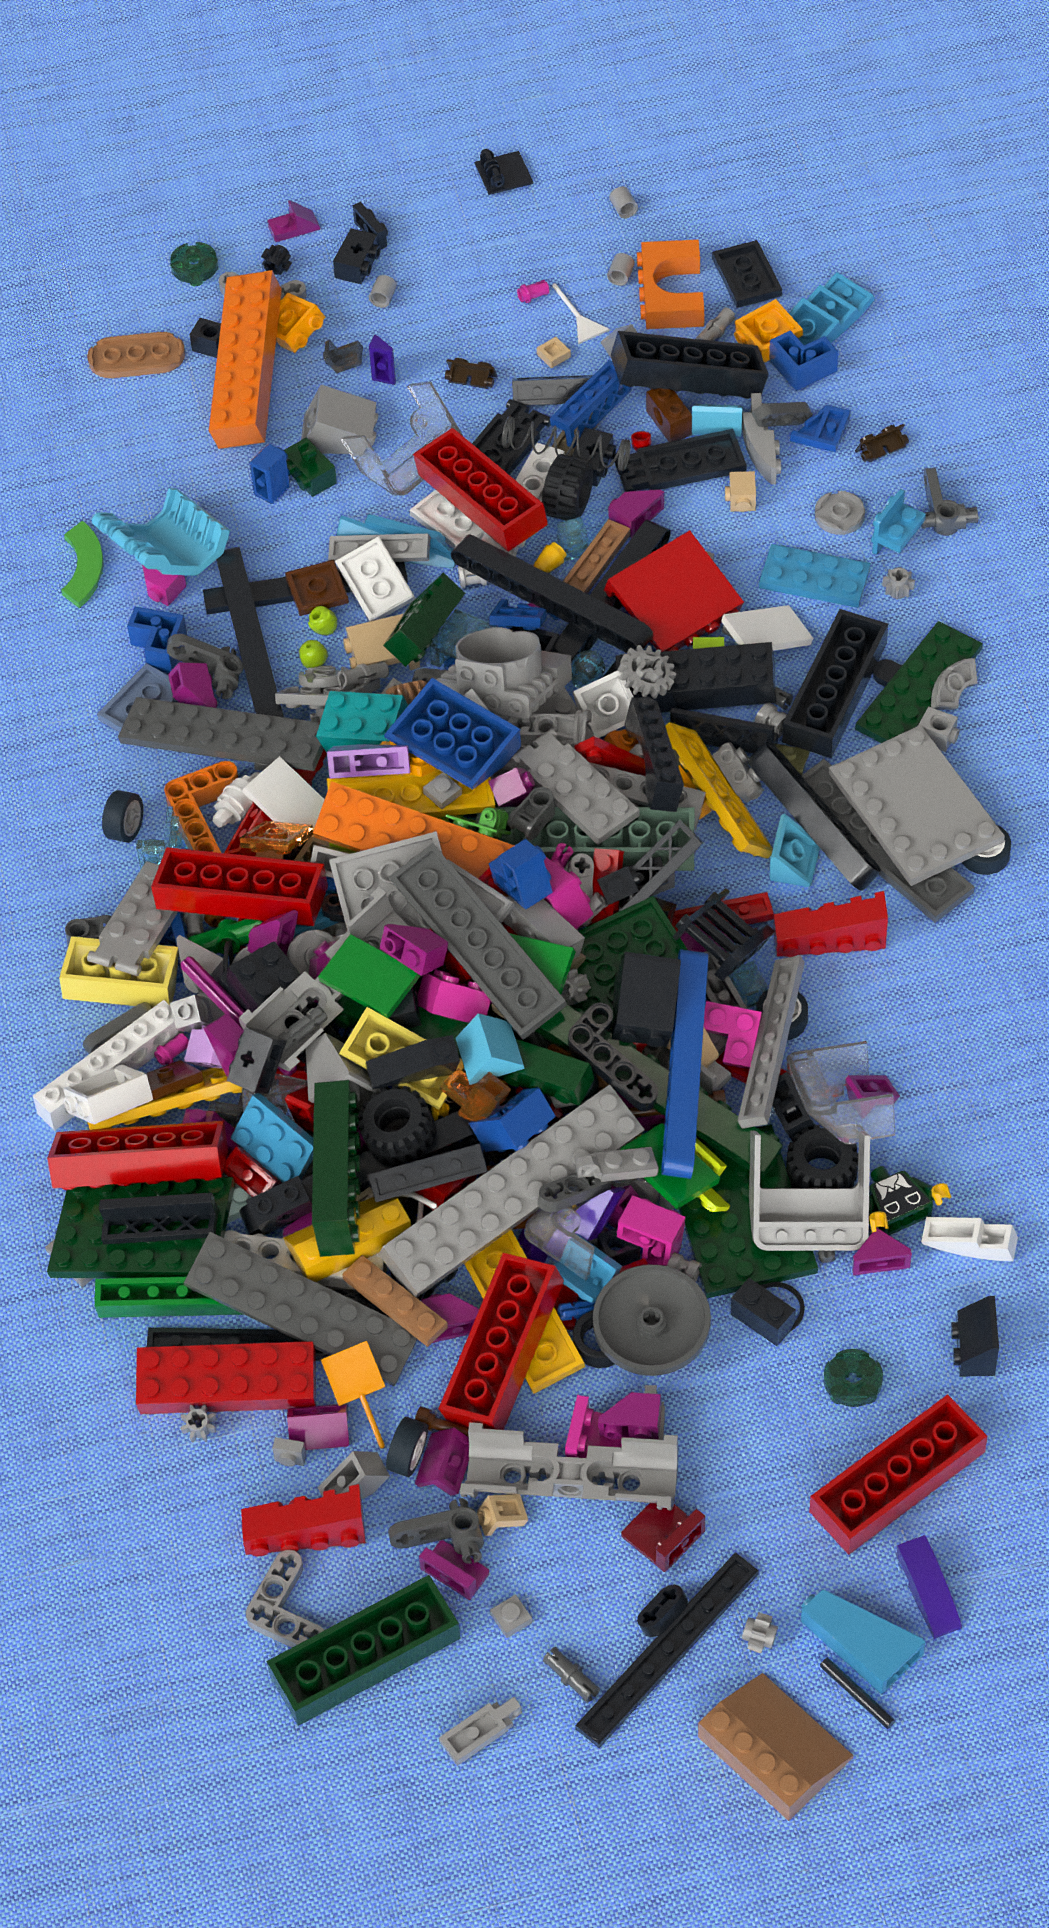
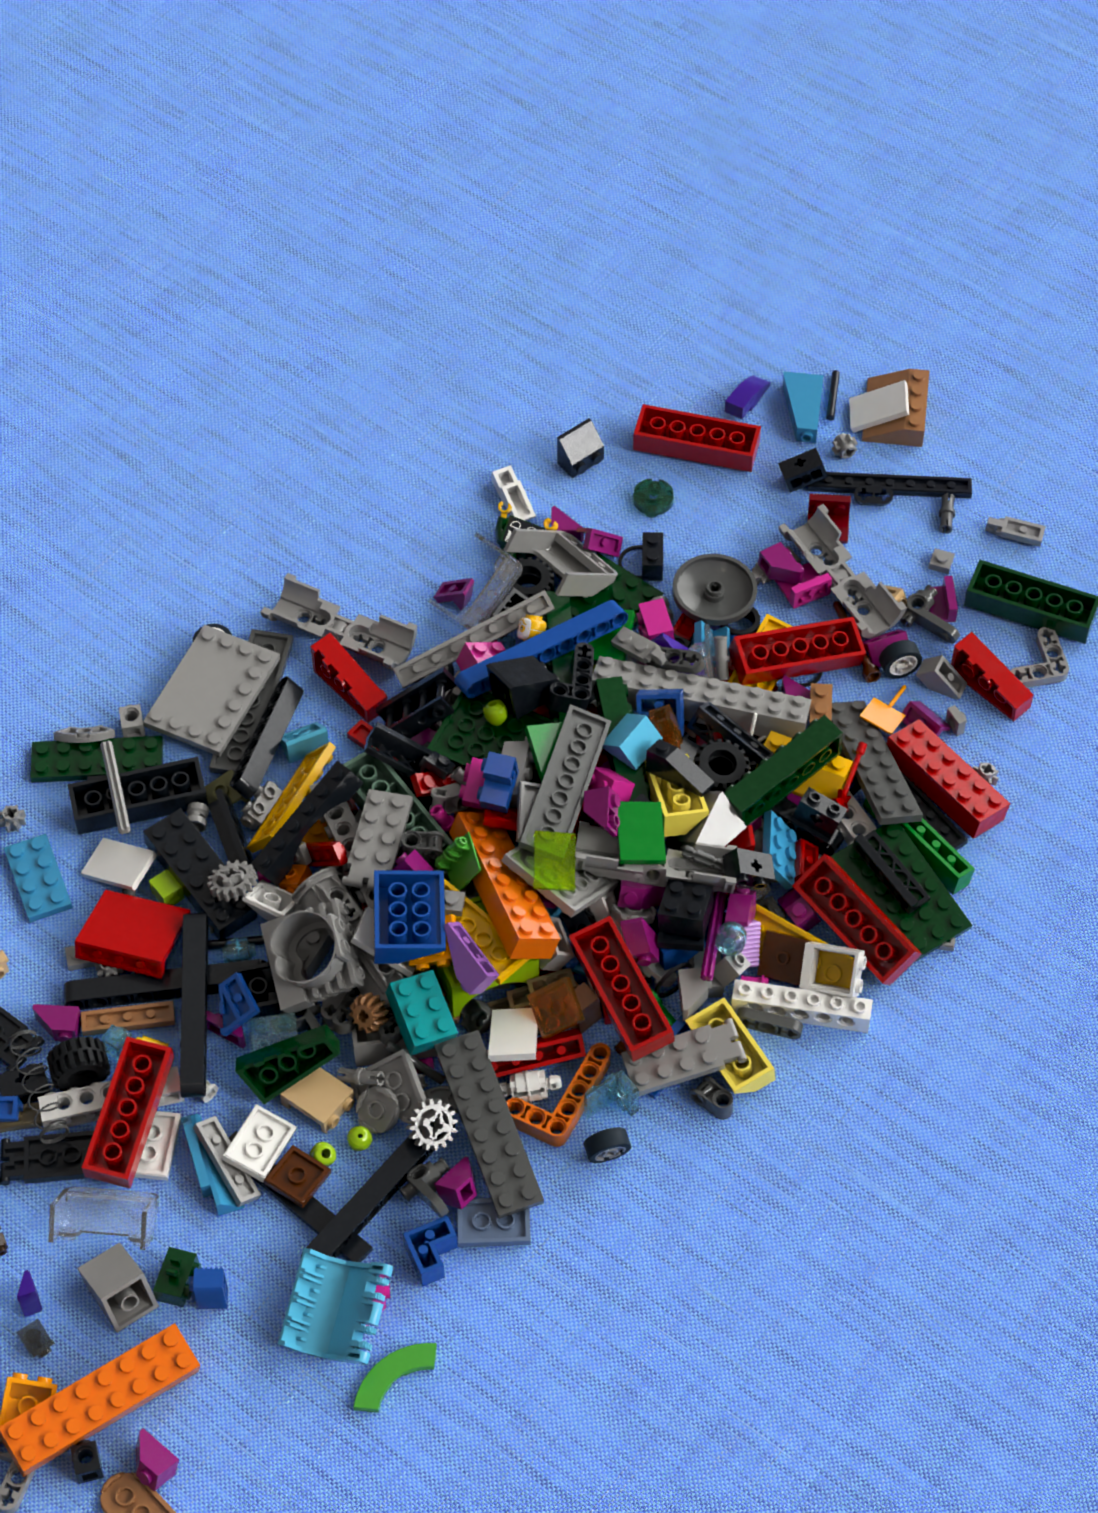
camera: 130 degrees left, 0 degrees up
(167, 372) = (153, 1461): none -> magenta slope
(203, 1004) = (731, 938): none -> clear light blue head
(259, 687) = (429, 1134): none -> light grey gear
(277, 1242) = (842, 797): none -> red piece
(390, 865) = (554, 861): none -> clear neon green piece
(552, 1254) = (721, 658): none -> light grey pin
(728, 1083) = (530, 626): none -> yellow head
(756, 1551) = (803, 470): none -> black brick
(784, 1711) = (879, 406): none -> white tile
(825, 1268) = (601, 541): none -> magenta panel
(848, 652) = (115, 787): none -> light grey axle
(955, 921) = (303, 600): none -> light grey piece

